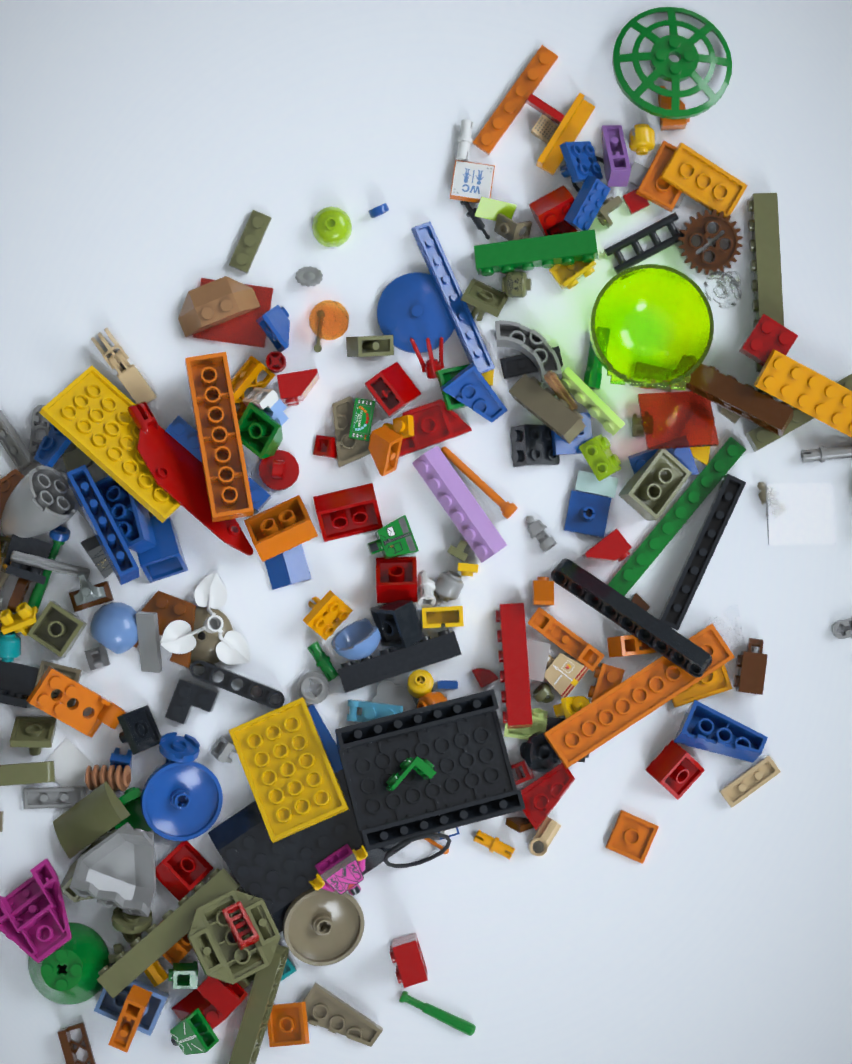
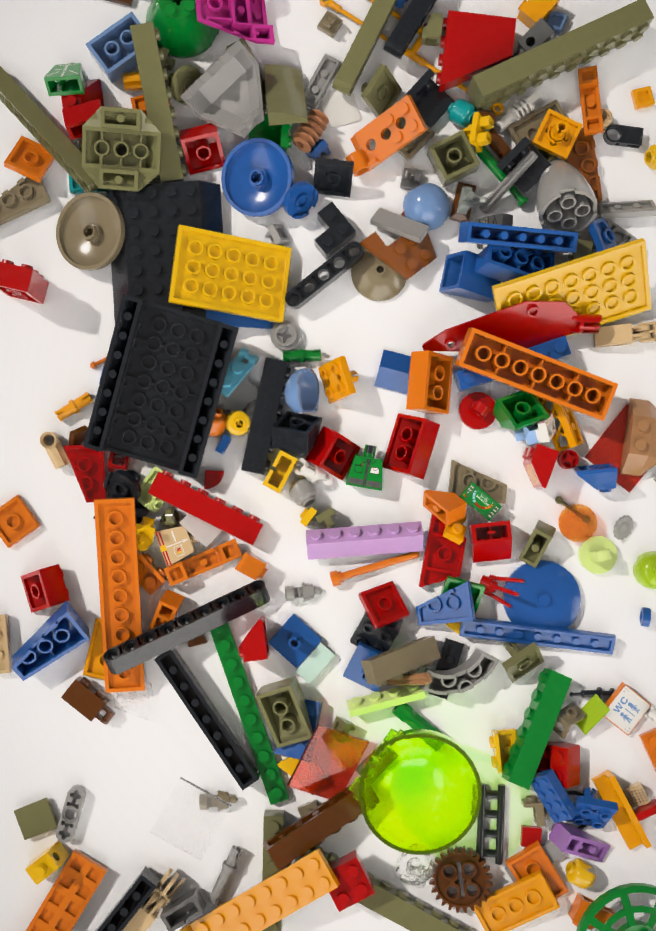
camera: 120 degrees right, 0 degrees up
(60, 534) = (528, 205): blue tile -> none
(130, 1018) = (108, 34): orange slope -> none
(180, 640) = (387, 248): white plant -> none
(184, 975) = (117, 97): green brick -> none
(247, 922) = (109, 163): red slope -> none
(325, 446) = (474, 459): red slope -> none
(341, 871) = (122, 266): torso -> none
(347, 285) = (597, 554): none -> yellowish green tile
(422, 767) = (173, 369): green bracket -> none
(429, 835) = (110, 309): black piece -> none
(507, 452) = (383, 604): none -> red tile
(516, 284) = (518, 694): olive head -> none
(600, 457) = (335, 679): lime bracket -> none

